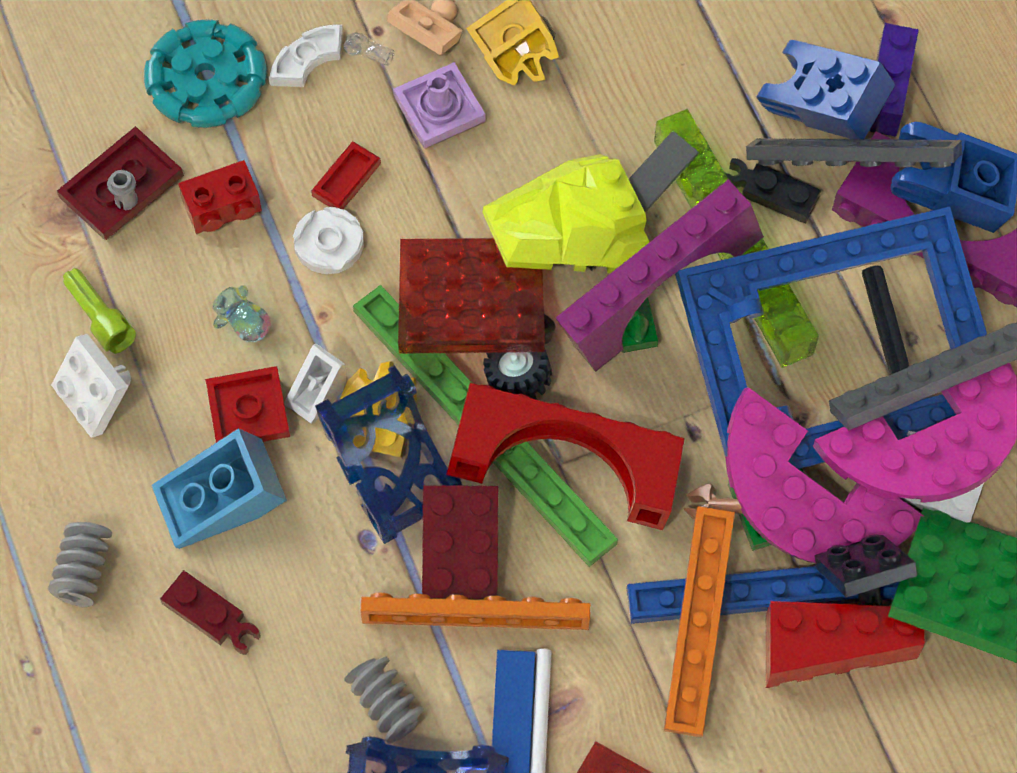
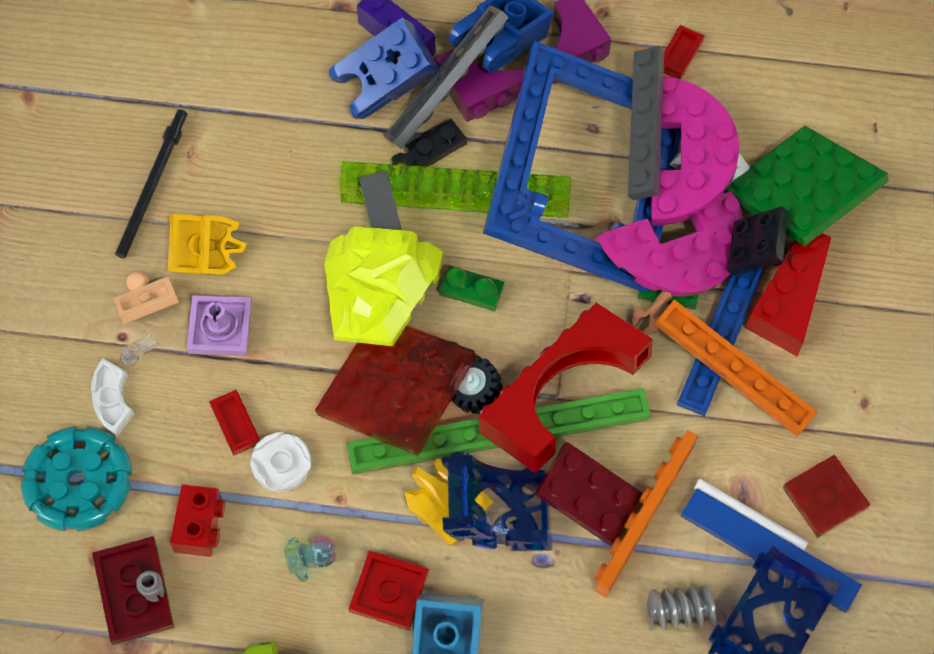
camera: 60 degrees left, 0 degrees up
(318, 380) = (401, 529): white slope -> none
(715, 225) = (474, 244): magenta arch -> none
(885, 319) = (587, 130): black axle -> none

